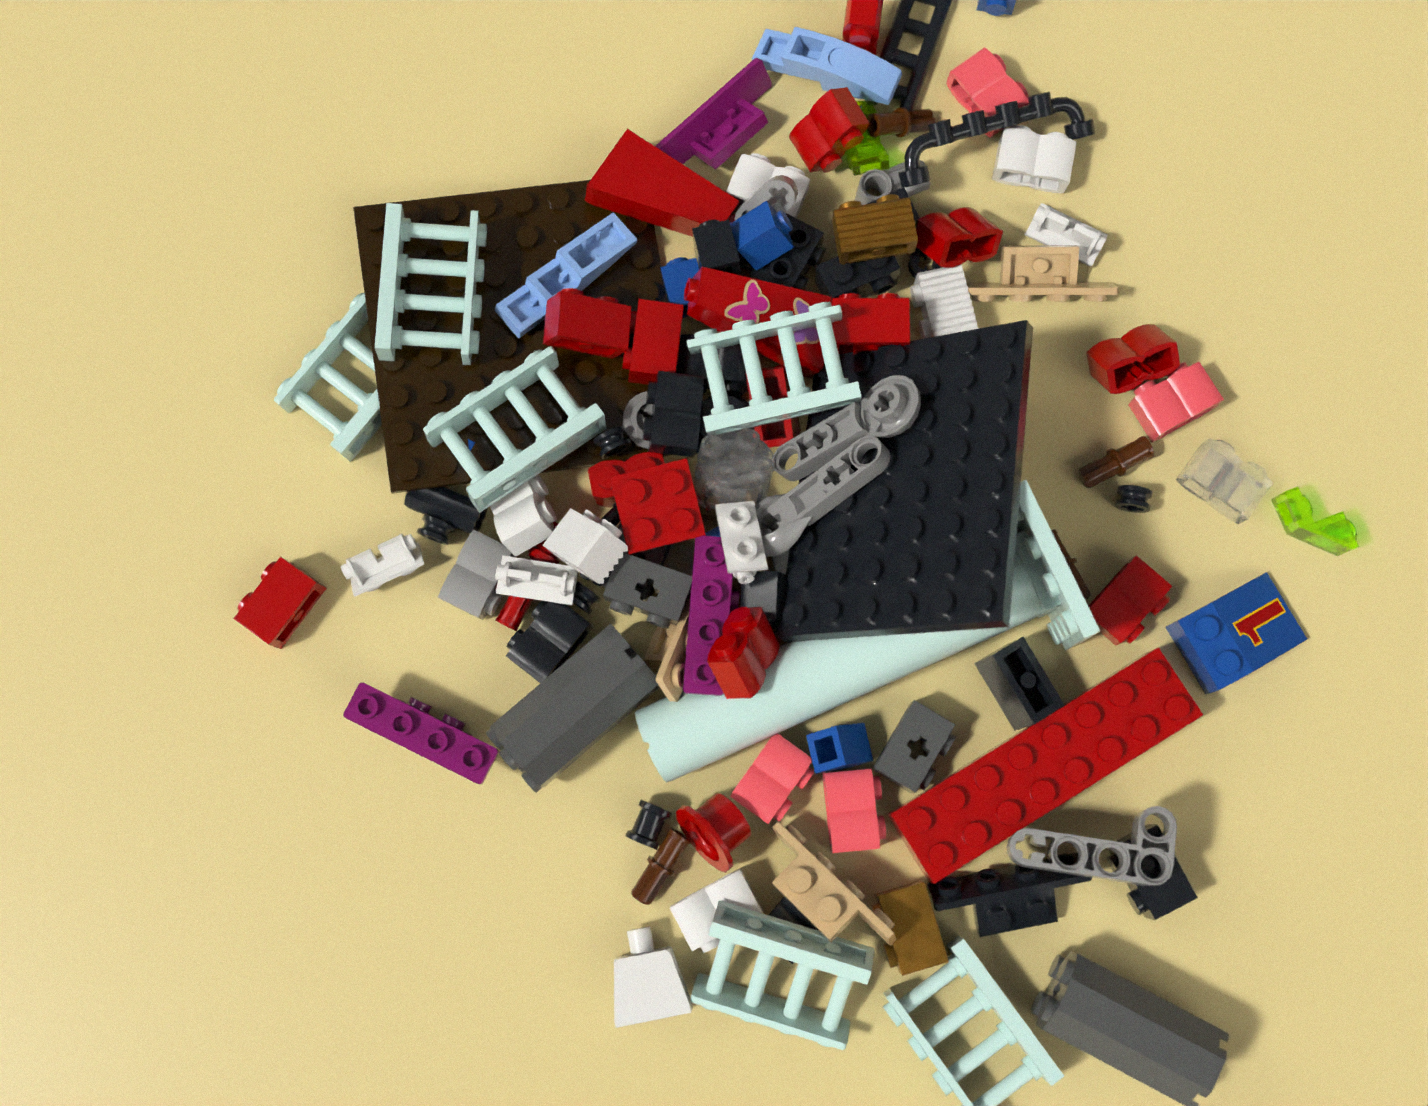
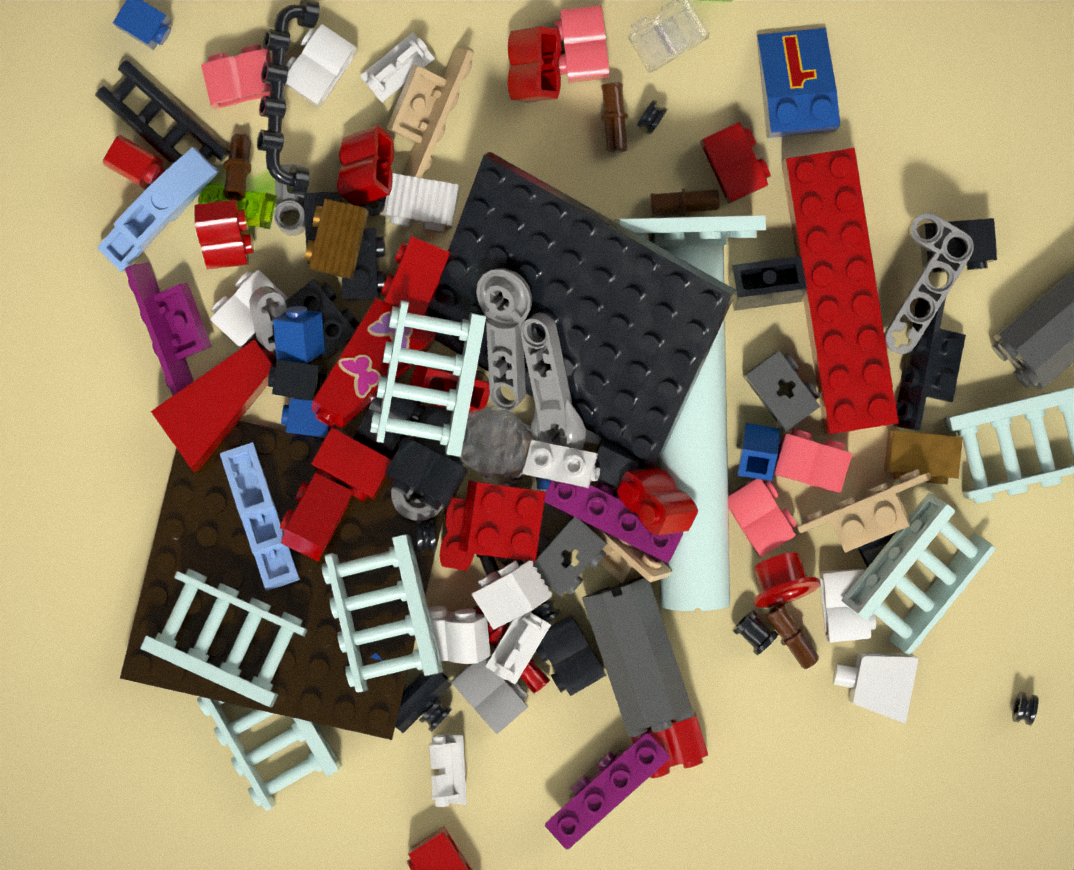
camera: 80 degrees left, 10 degrees up
(502, 793) = (681, 742): none -> red brick

